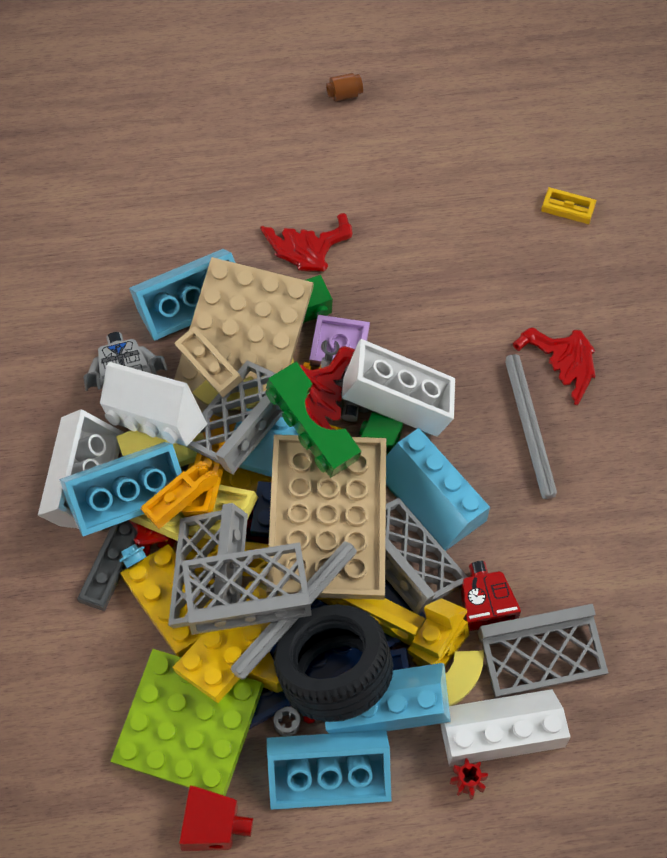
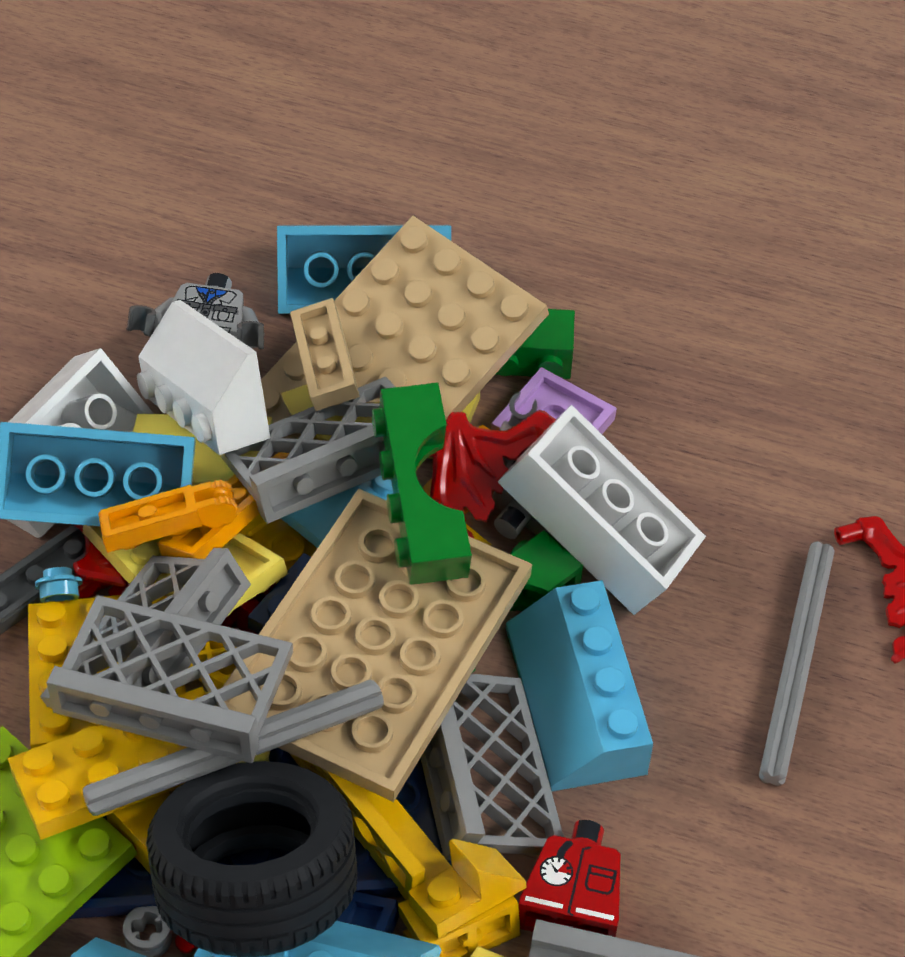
camera: 25 degrees right, 10 degrees down
(306, 248) = (581, 278): red animal -> none
(344, 86) = (763, 81): dark orange brick -> none

